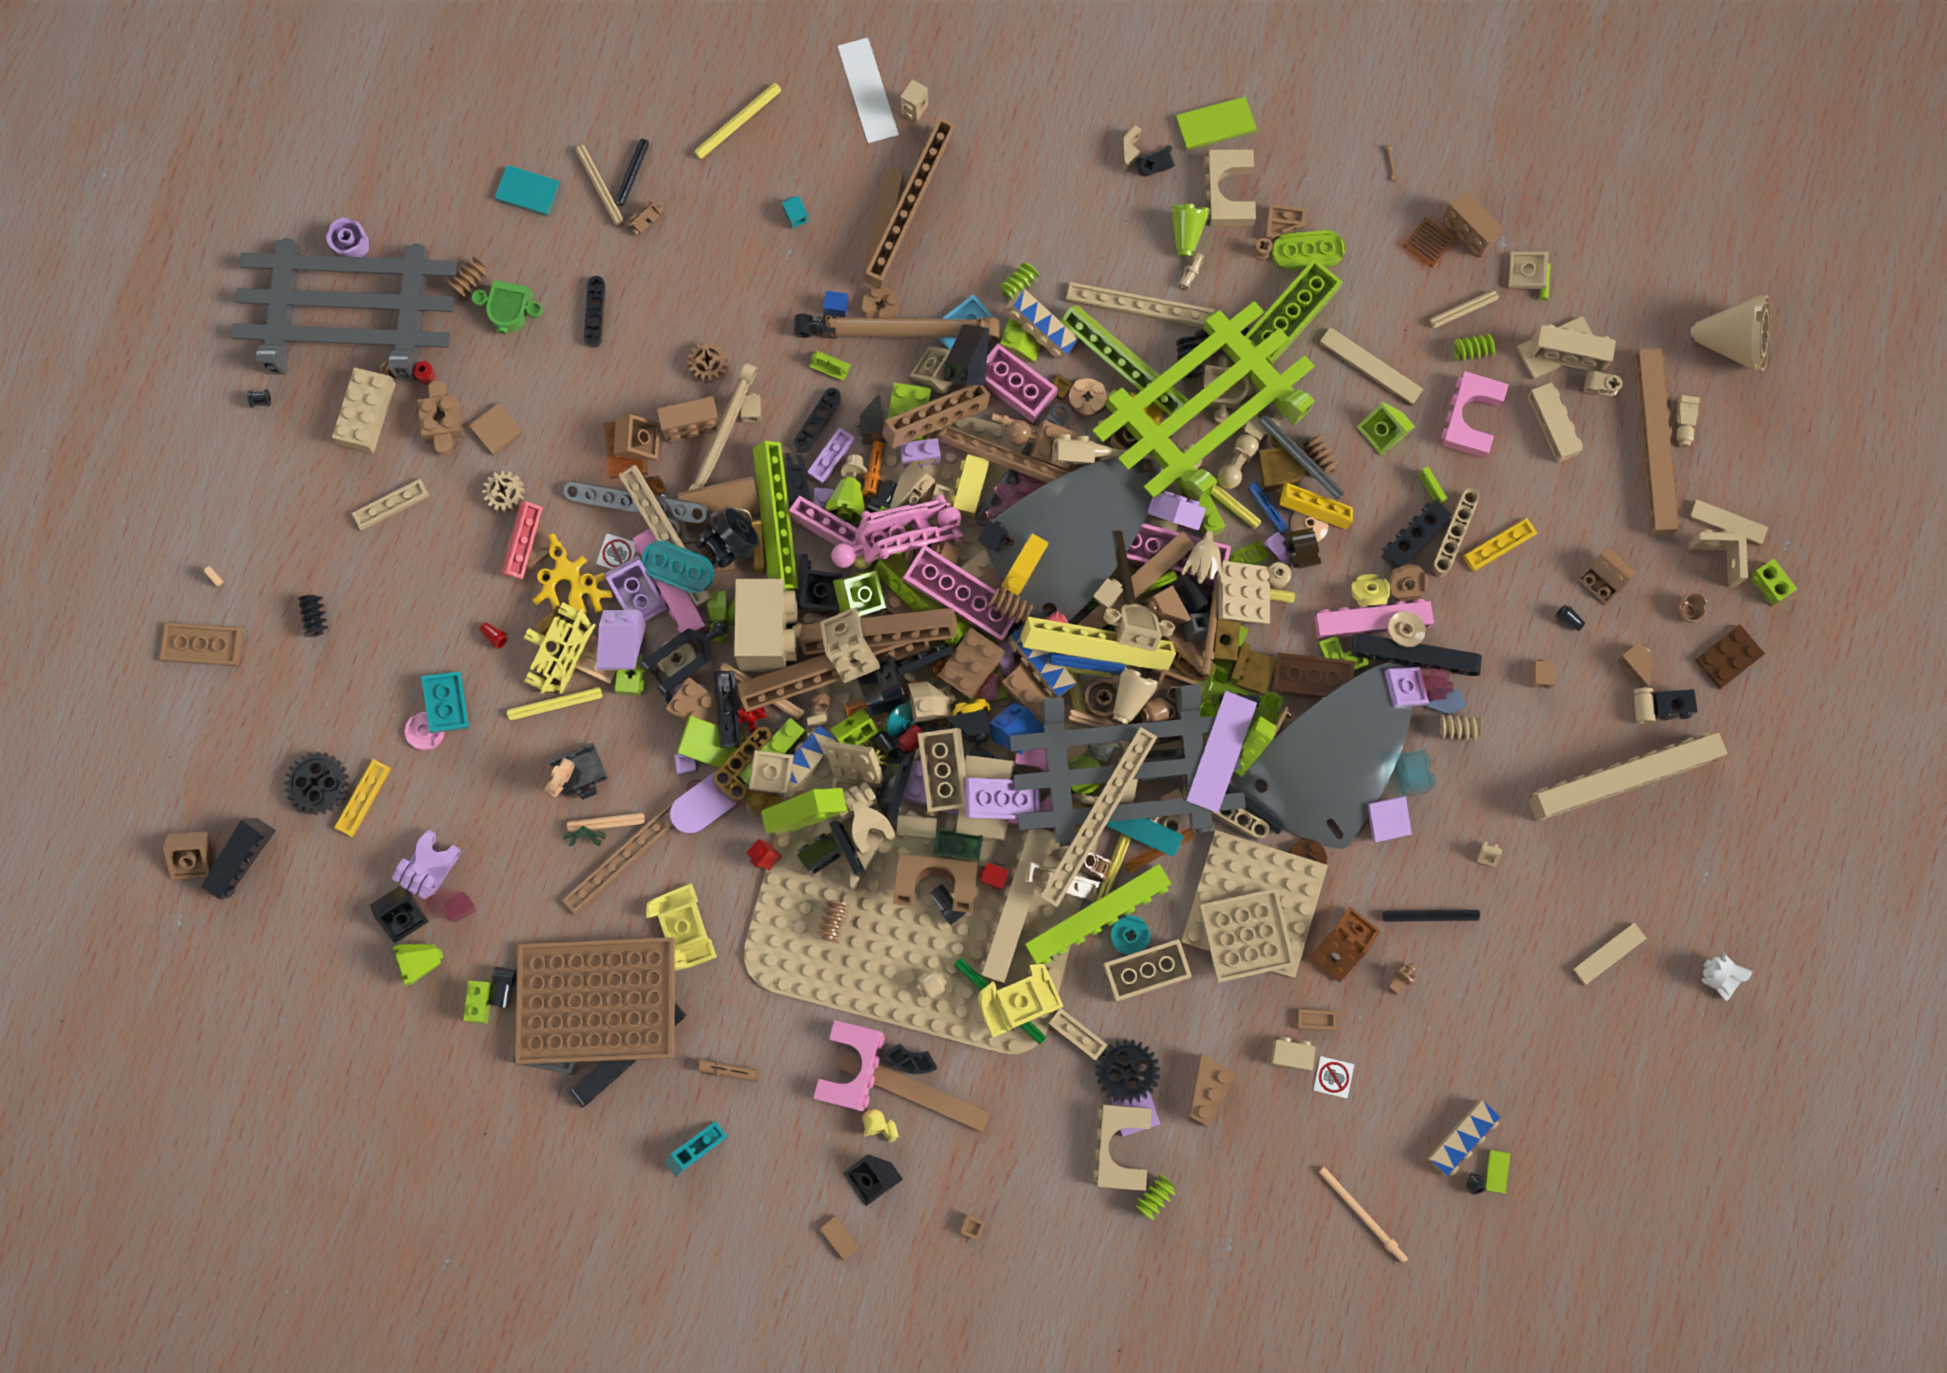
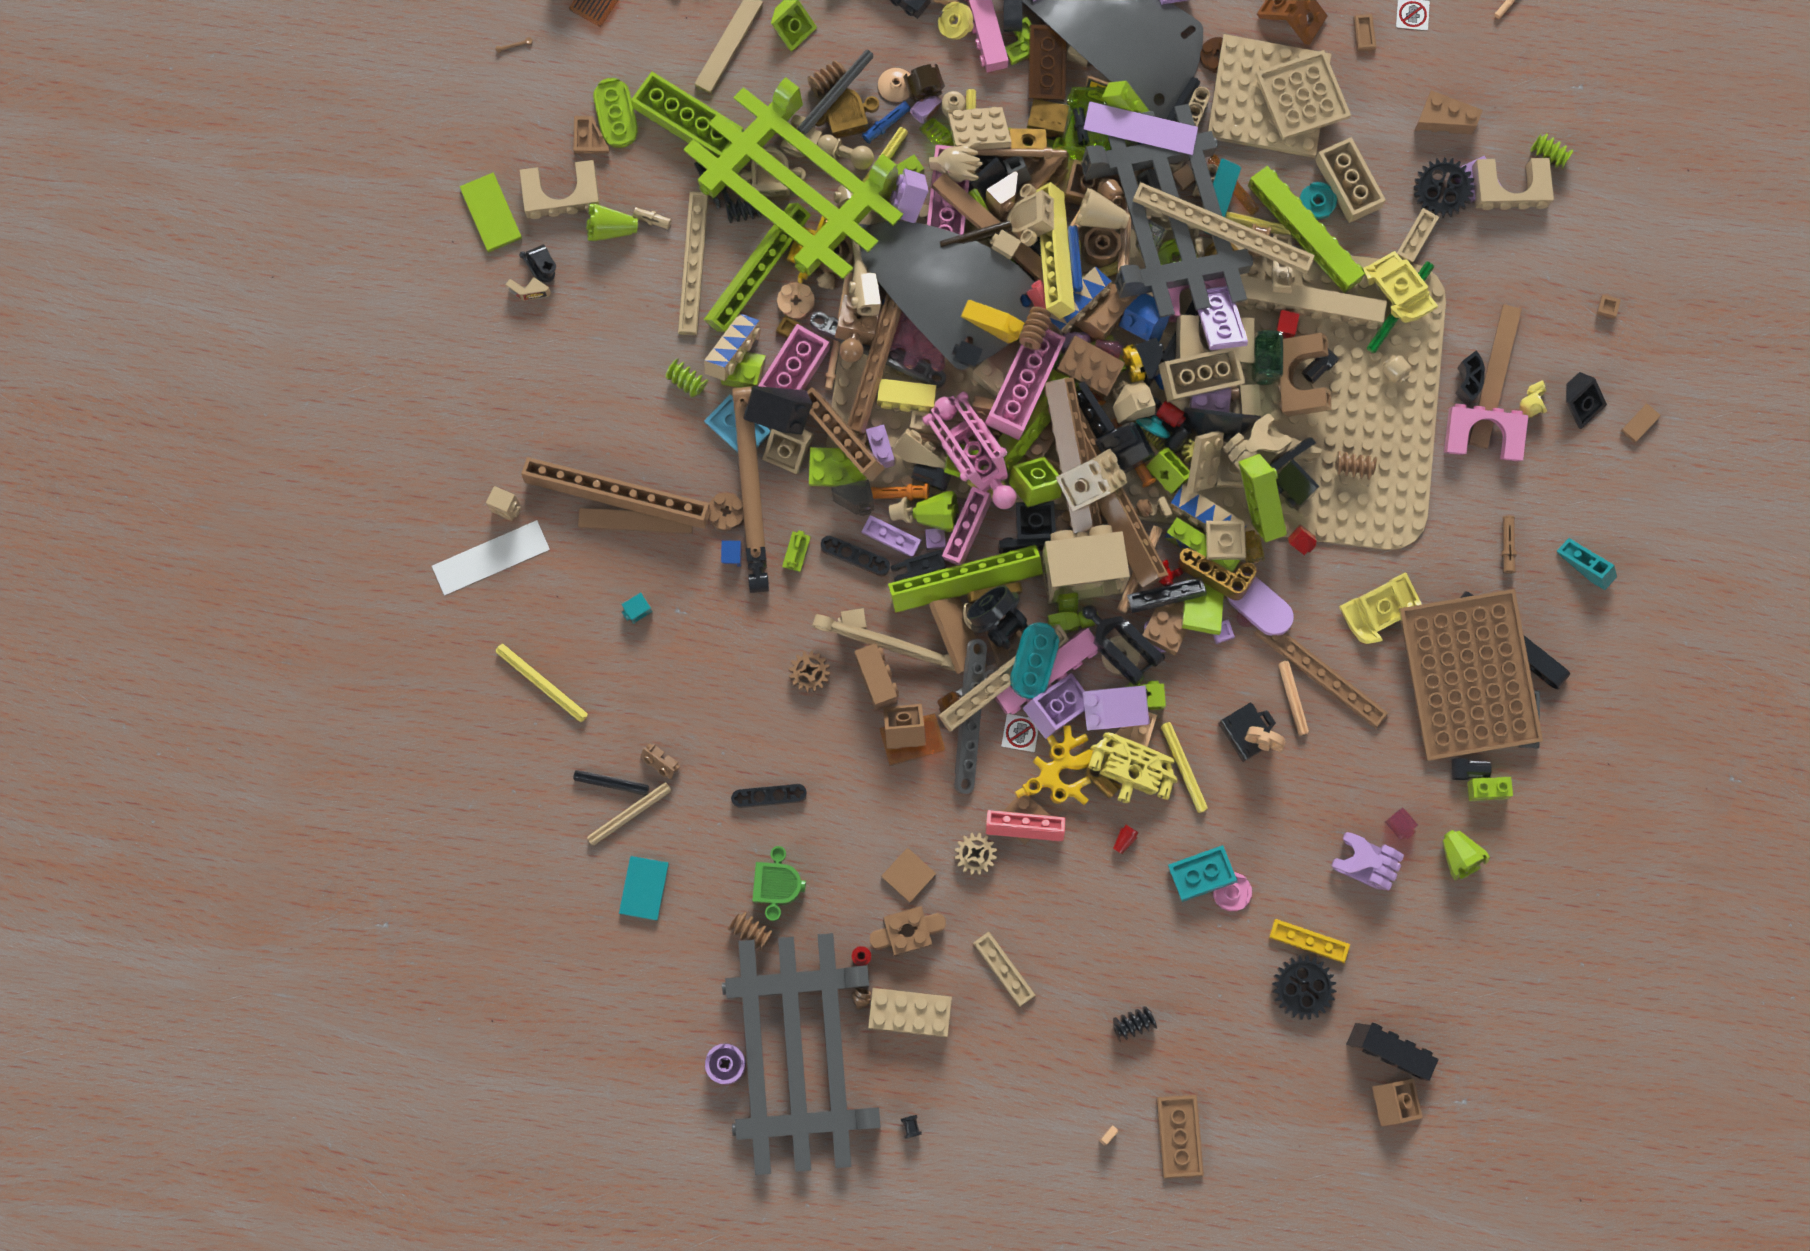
camera: 95 degrees left, 0 degrees up
(398, 913) = (1418, 882): black slope -> none
(583, 830) = (1307, 715): clear green arm -> none
(1263, 243) = (619, 157): medium nougat bush -> none
(1292, 1054) = (1401, 48): tan brick -> none
(1316, 506) = (879, 76): yellow slope -> none

